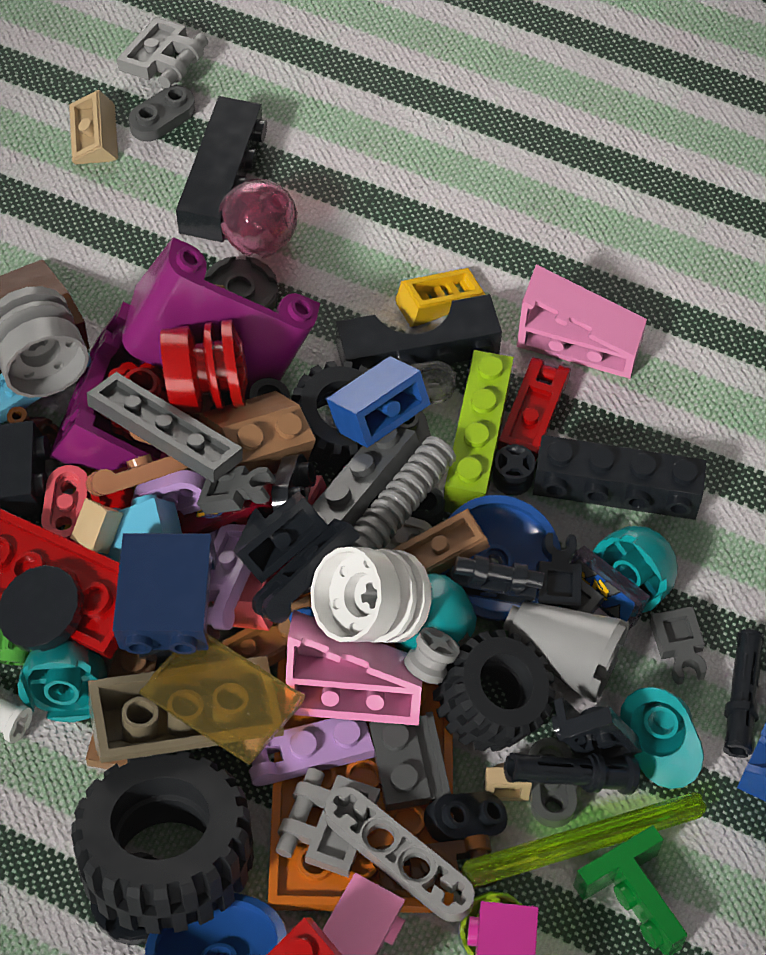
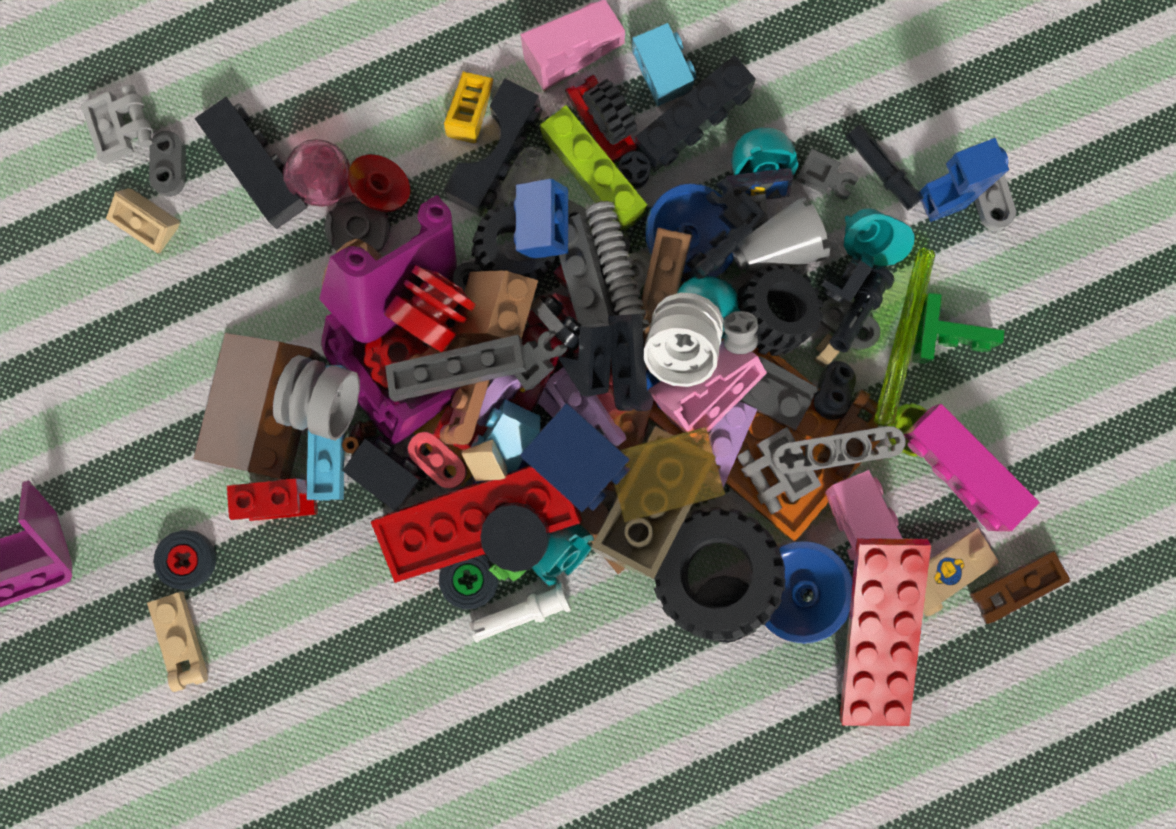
camera: 45 degrees left, 25 degrees up
(295, 267) = (378, 183): none -> red dish
(541, 392) = (610, 111): none -> black tyre
(642, 413) = (663, 64): none -> medium azure brick

